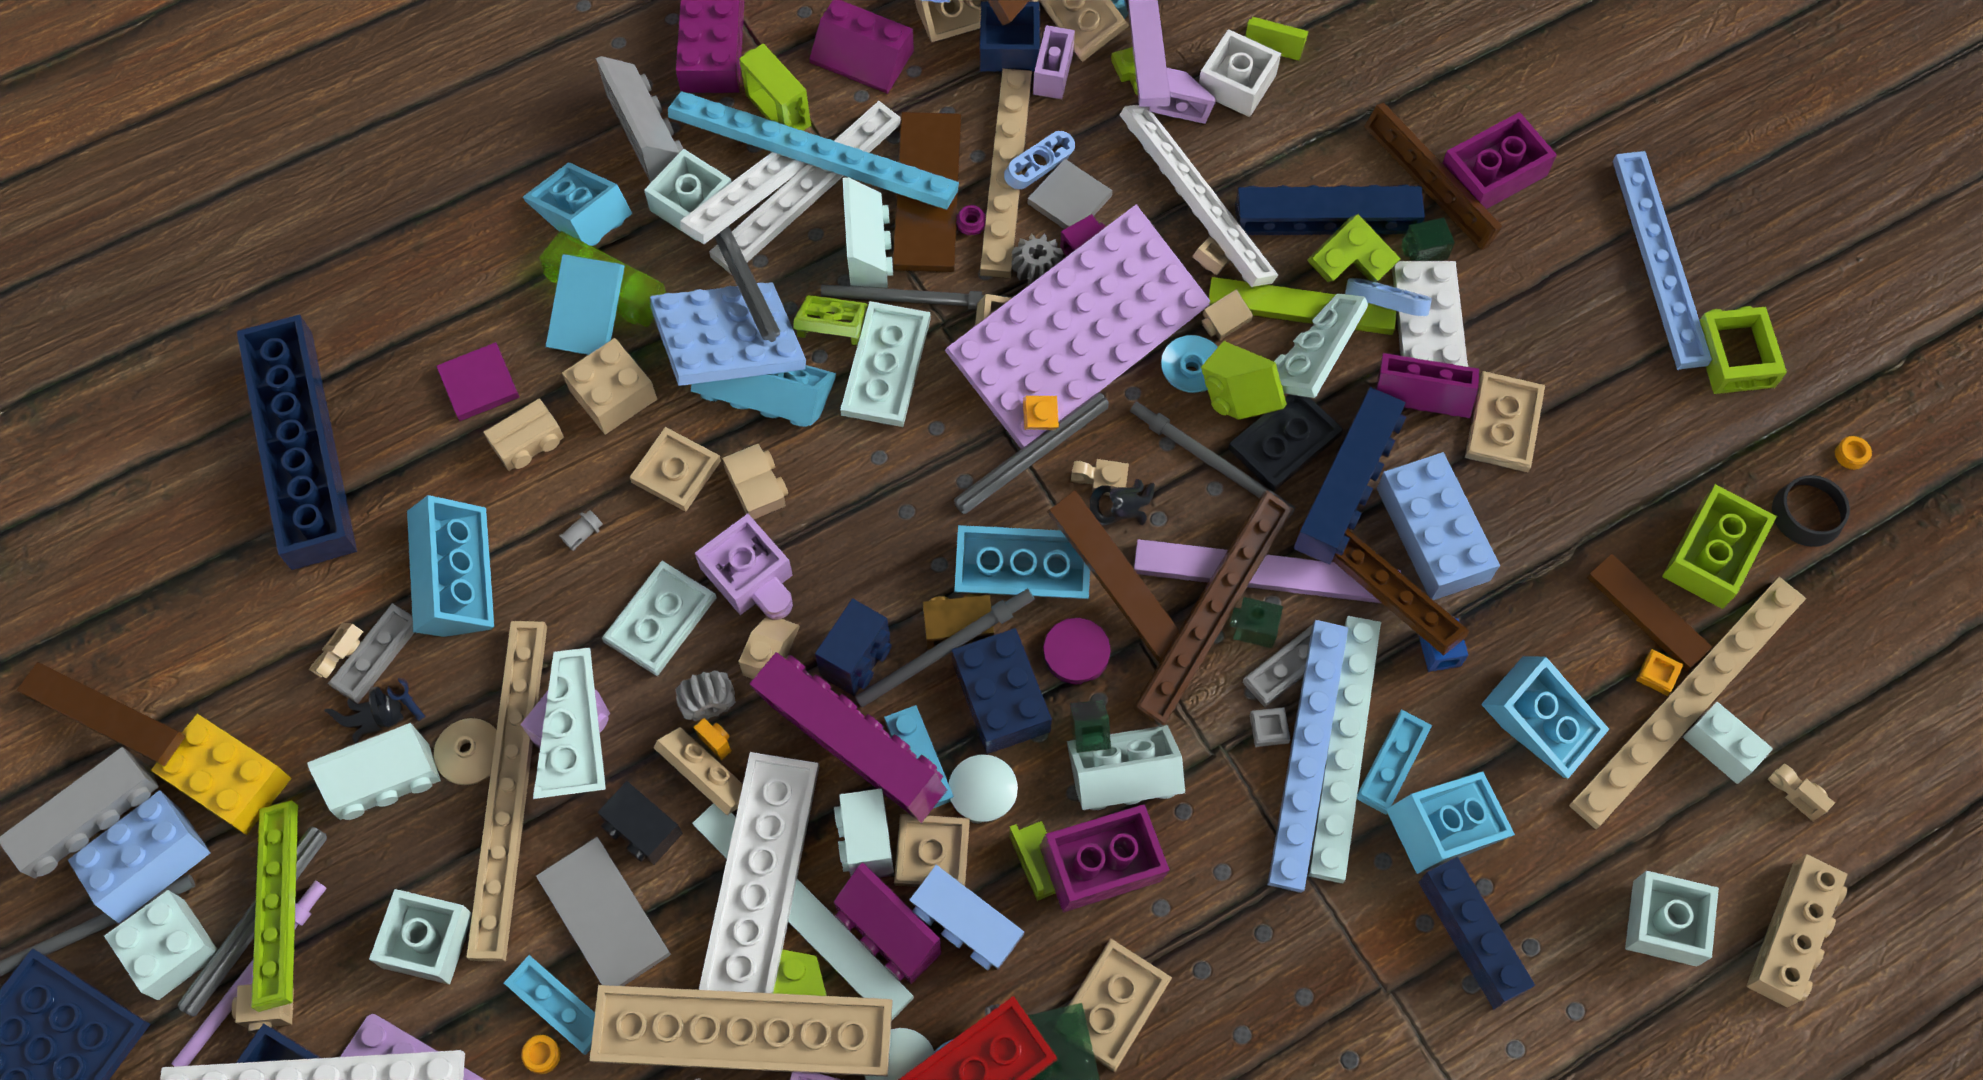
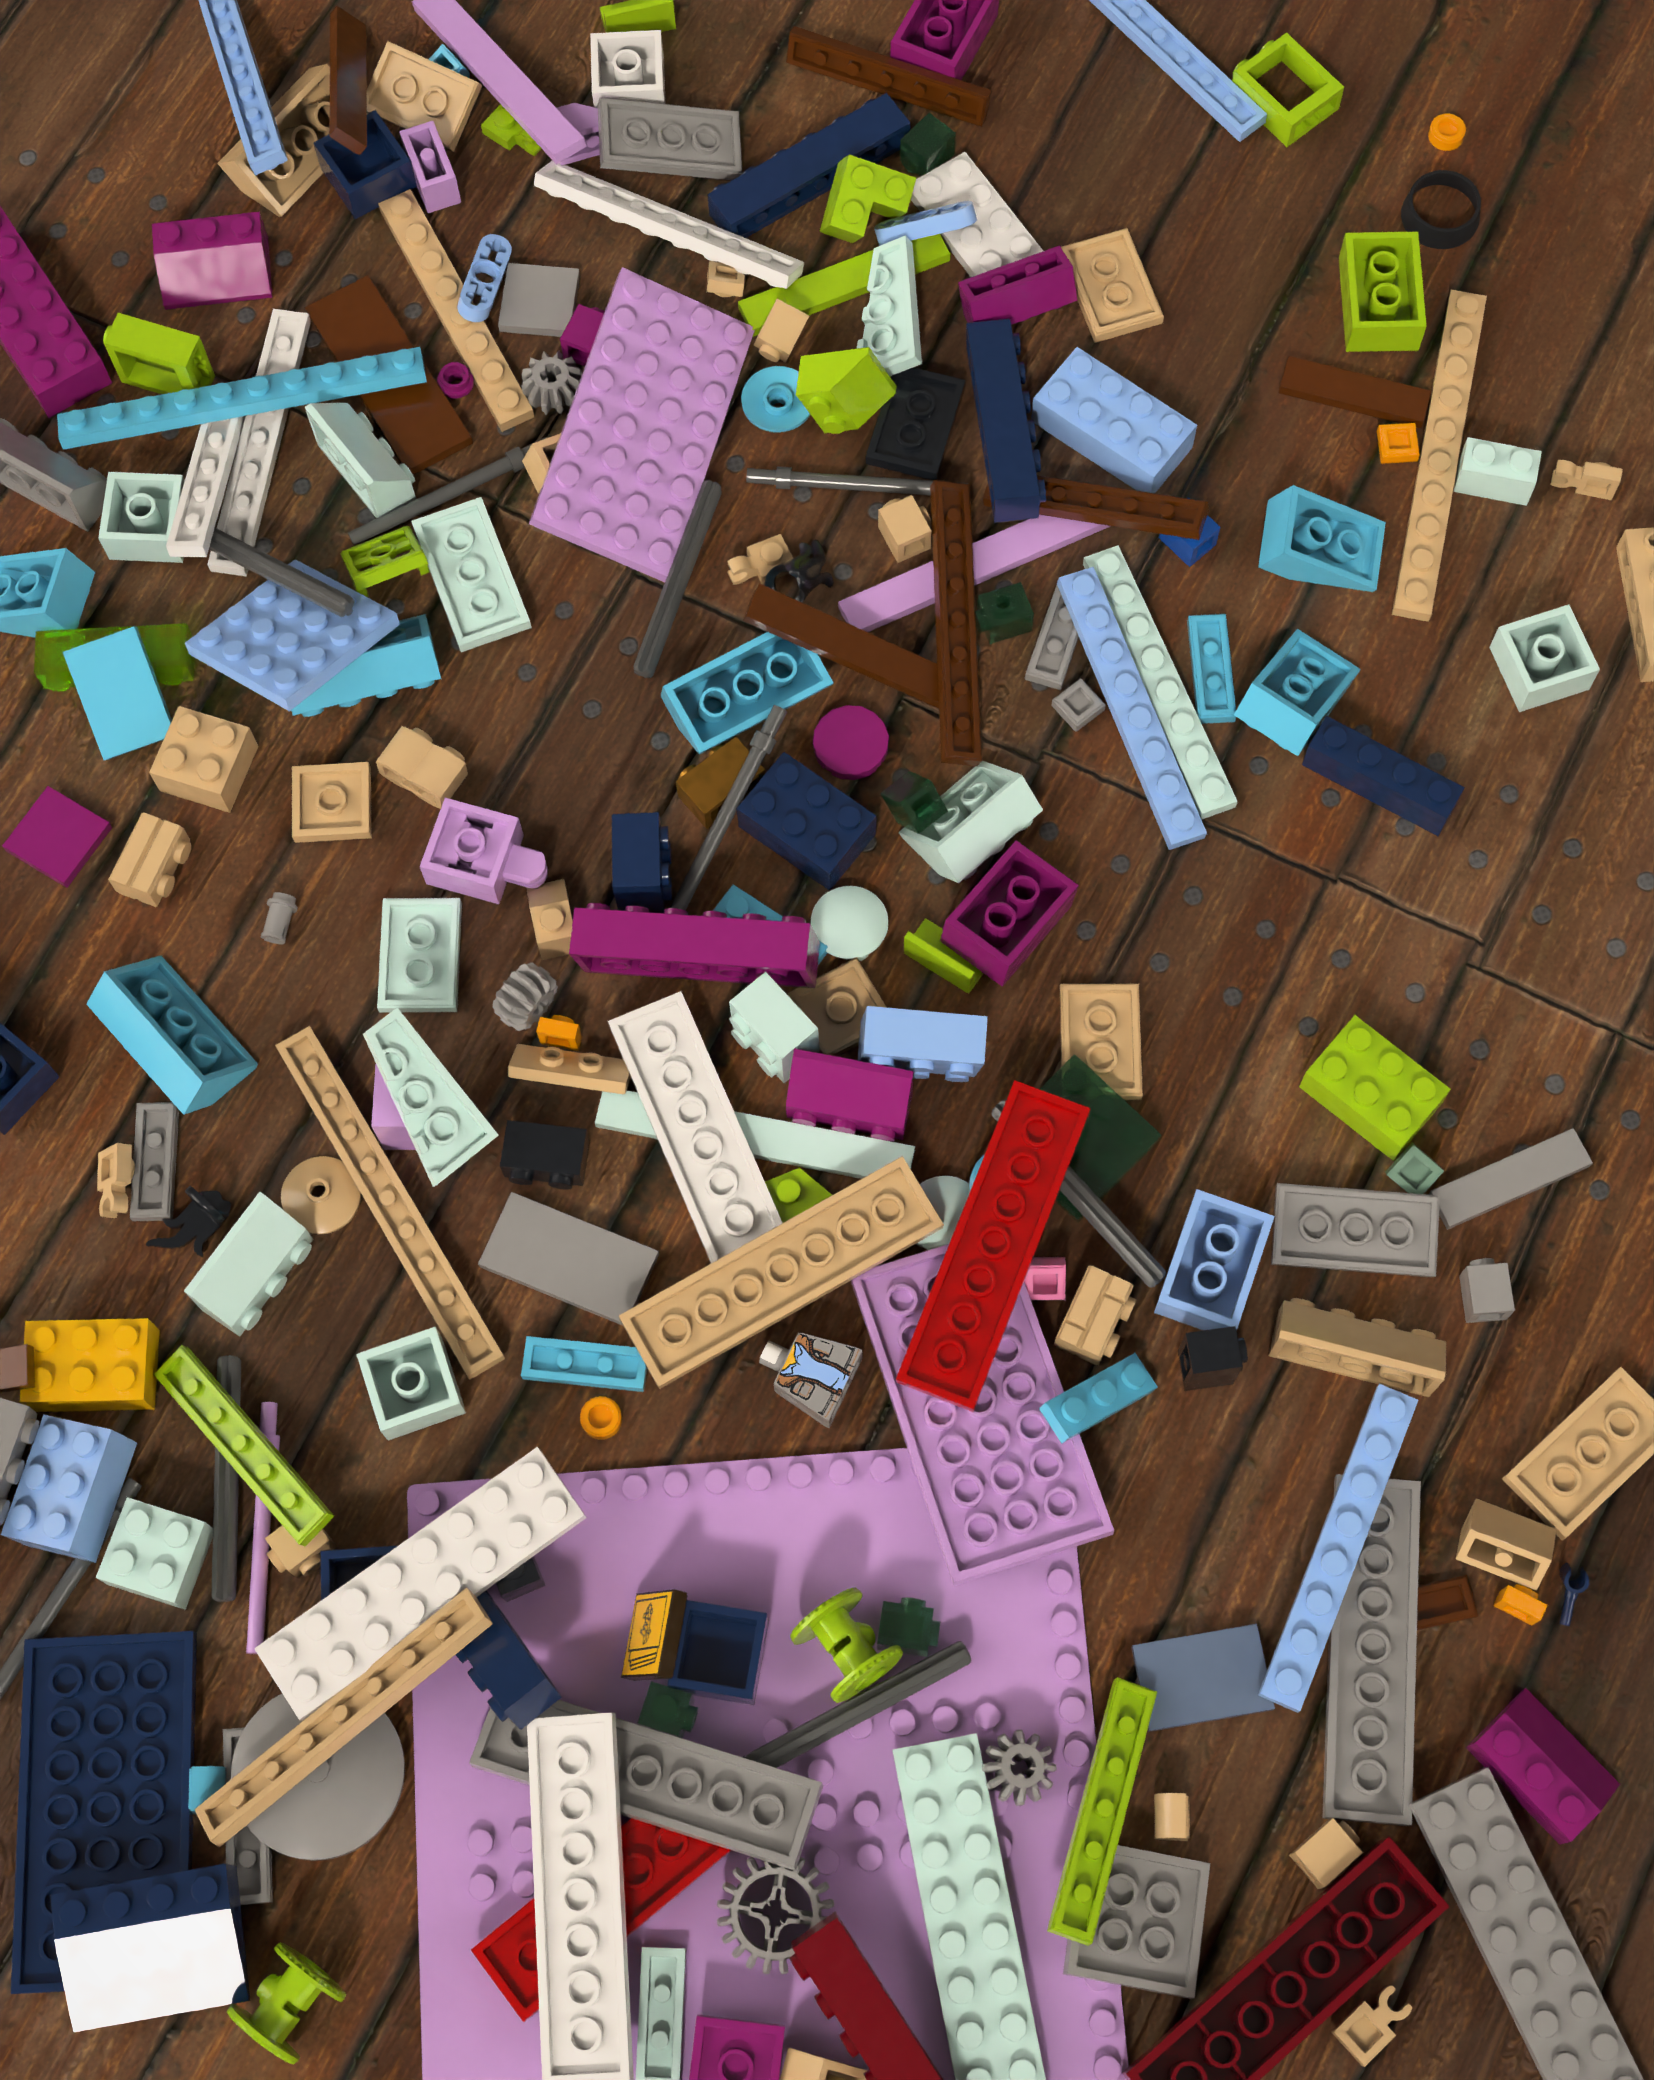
camera: 30 degrees left, 5 degrees up
(407, 700) = (222, 1183): dark blue hand -> none
(1040, 413) = (664, 532): light orange plate -> none
(1224, 513) = (905, 527): none -> tan brick
(1238, 134) = (669, 139): none -> light grey tile

